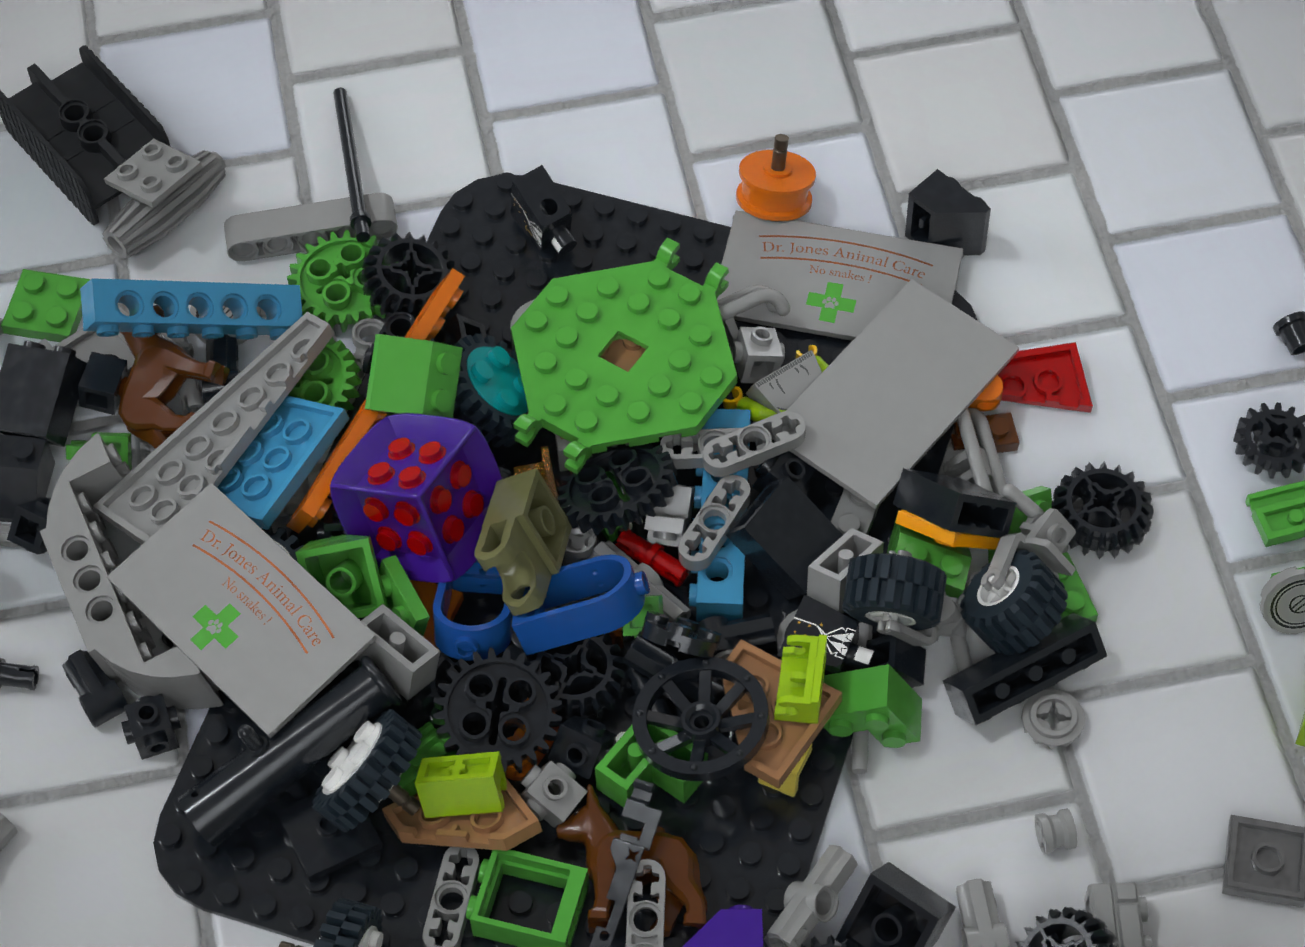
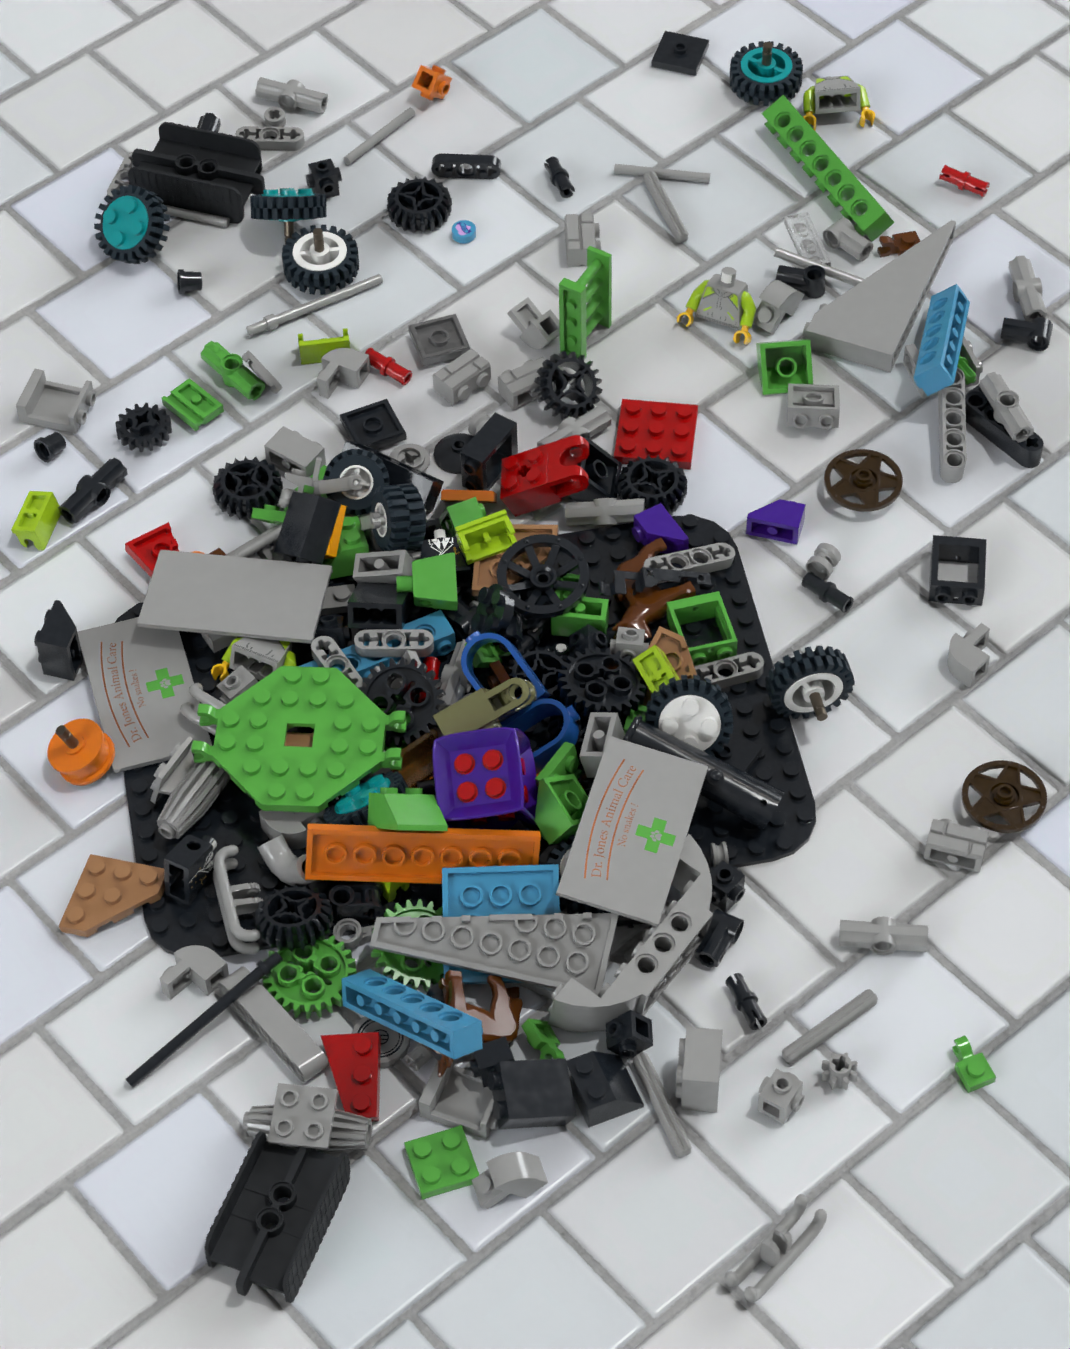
camera: 120 degrees left, 5 degrees down
(190, 737) = (719, 853): none -> light grey bush
(196, 264) = (356, 1070): none -> red wing
(425, 191) = (194, 965): none -> light grey brick
(476, 231) = (235, 901): none -> light grey piece
(492, 303) = (283, 862): none -> light grey cylinder
(579, 150) = (110, 892): none -> medium nougat plate
(633, 243) = (191, 789): none -> light grey plate
(733, 463) = (333, 646): light grey beam -> none
(771, 595) = (432, 582): none -> bright green torso
(906, 835) = (544, 475): none -> red brick
(929, 741) = (462, 495): none -> orange plate
(989, 797) = (484, 453): none -> black window
(1024, 800) = (448, 452): none -> black dish
(1132, 586) = (291, 450): none -> light grey brick
(1137, 701) = (373, 425): none -> black plate
(1170, 274) = (37, 519): none -> lime hinge
(1172, 851) = (462, 377): none -> light grey brick
(1191, 349) = (93, 490): none -> black piece
(1246, 770) = (388, 367): none -> red pin
(1268, 709) = (342, 366): none -> light grey brick

